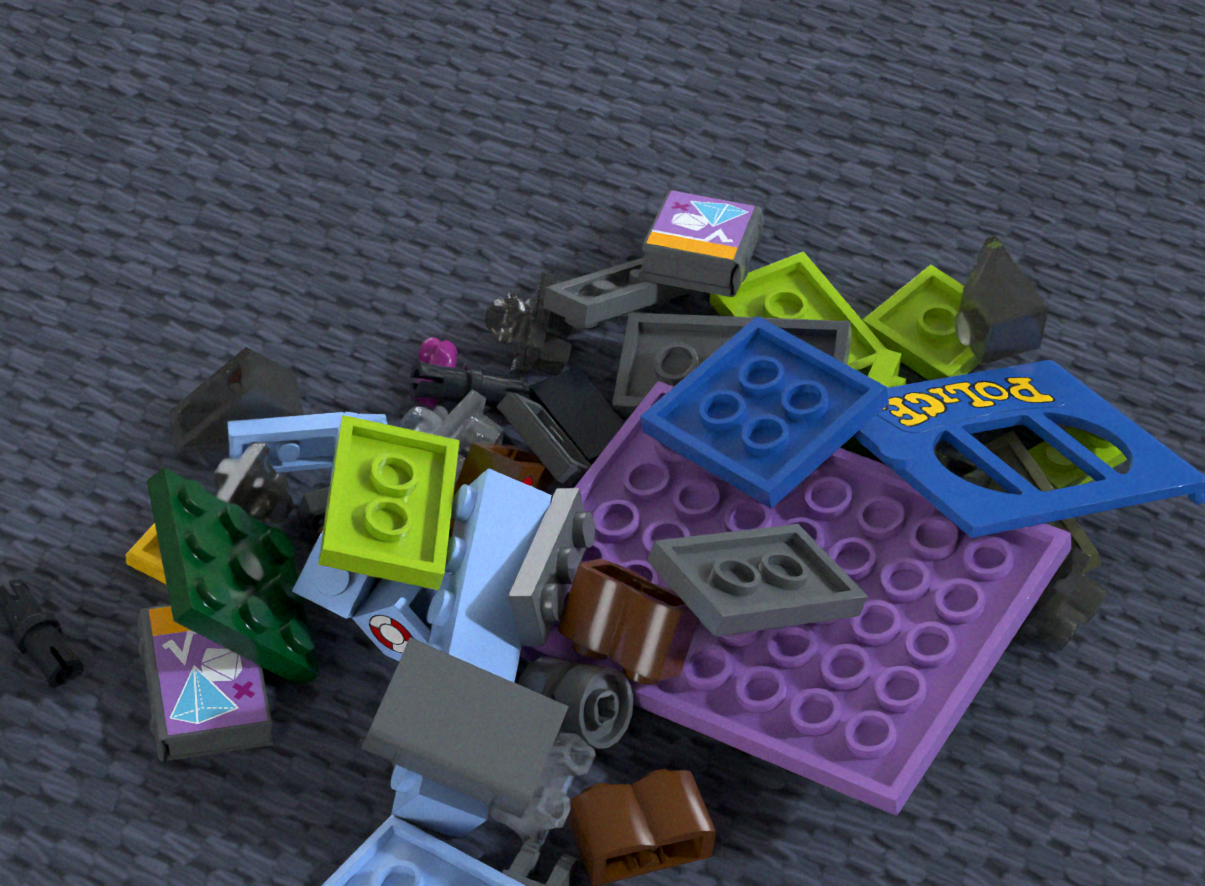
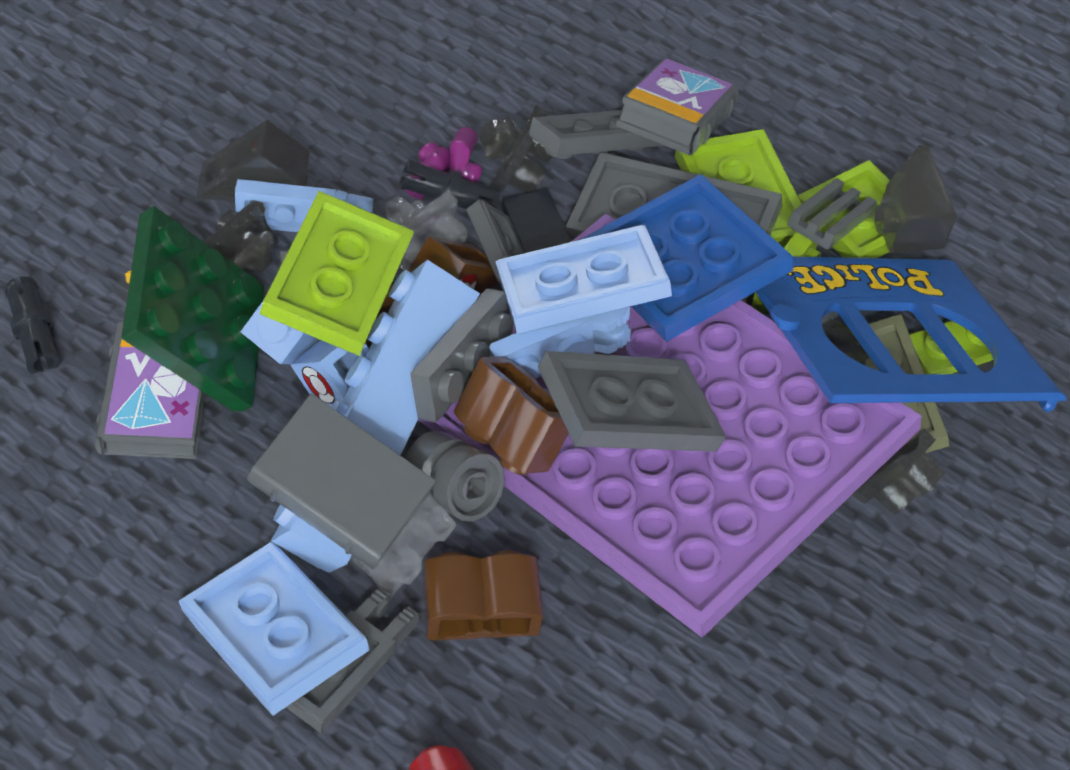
camera: 10 degrees right, 5 degrees up
(467, 342) = (460, 153): none -> magenta arm
(662, 456) = (582, 278): none -> light blue tile
(675, 513) = (584, 335): none -> light blue hinge
(915, 316) = (831, 193): none -> dark grey tile

